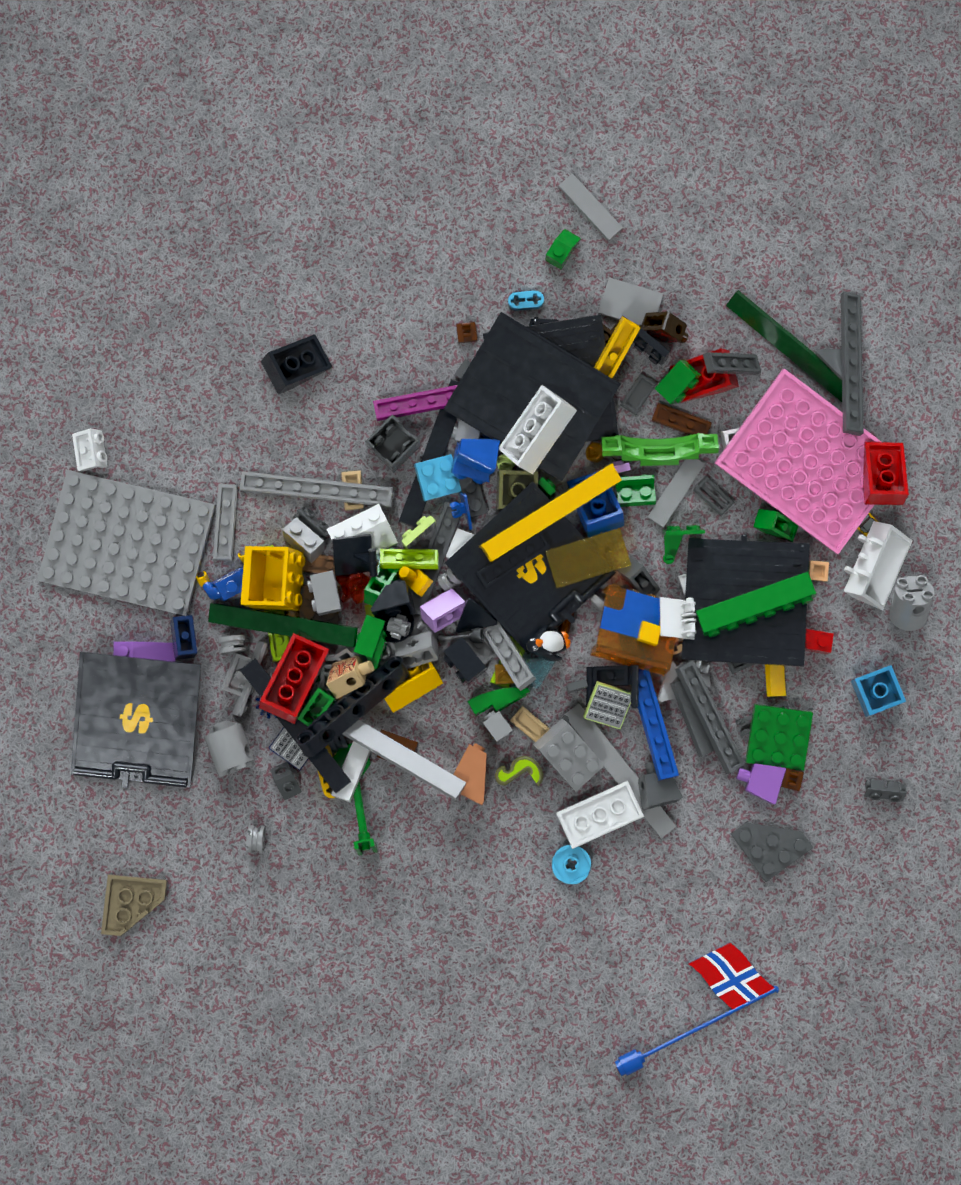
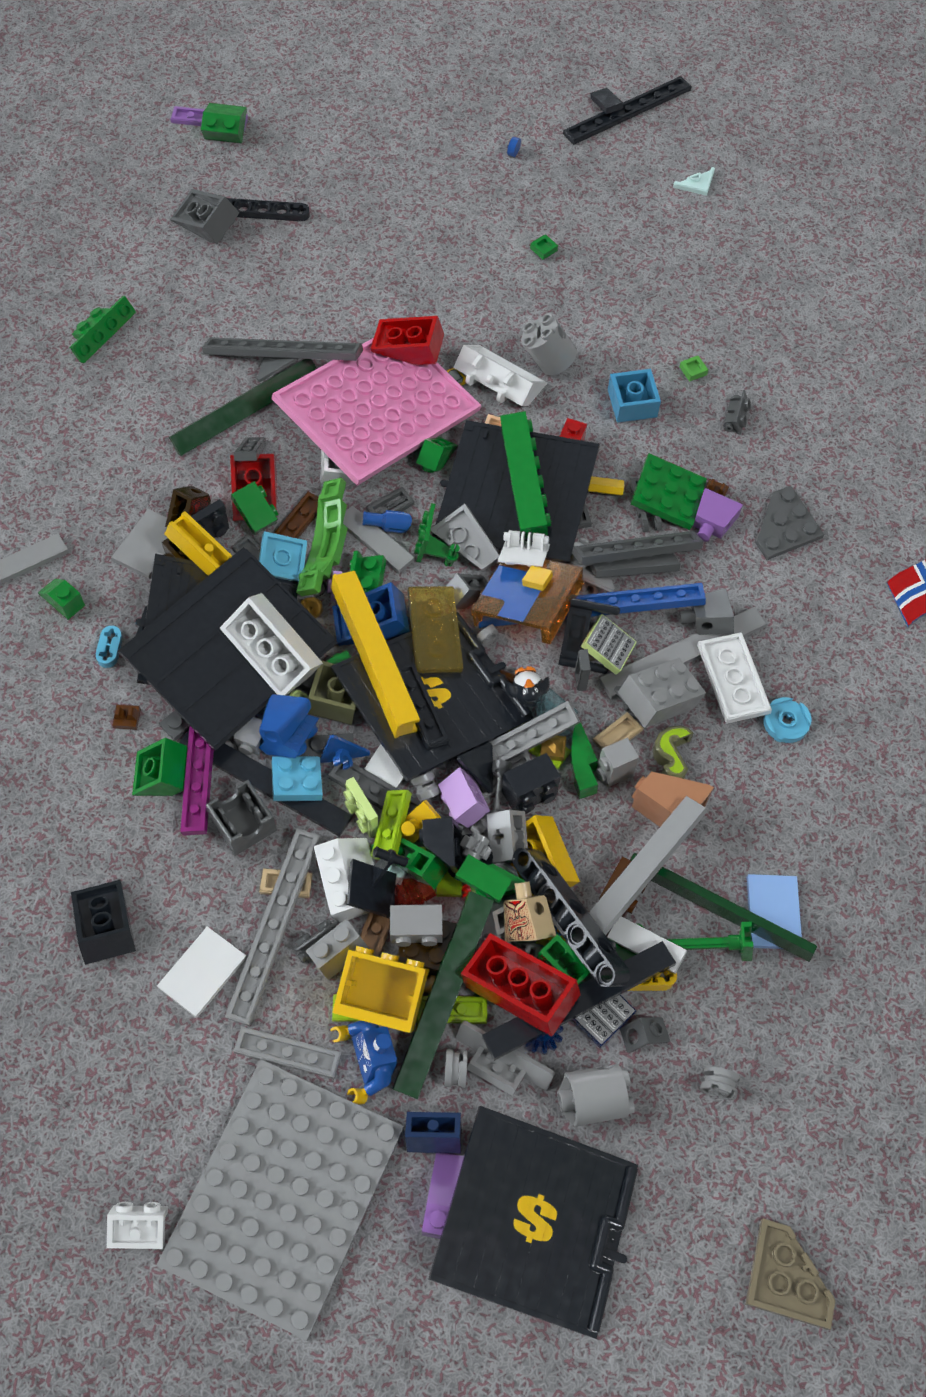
camera: 85 degrees left, 20 degrees down
(273, 446) = (201, 972): none -> white tile
(389, 834) = (734, 913): none -> dark green tile
(401, 868) = (776, 901): none -> light blue tile
(424, 371) = (160, 769): none -> green slope
(635, 416) = (283, 555): none -> medium azure plate
(687, 569) = (464, 529): none -> light grey wing
(693, 499) = (389, 521): none -> blue arm
(848, 195) = (99, 328): none -> green bracket
(928, 743) = (693, 368): none -> bright green plate

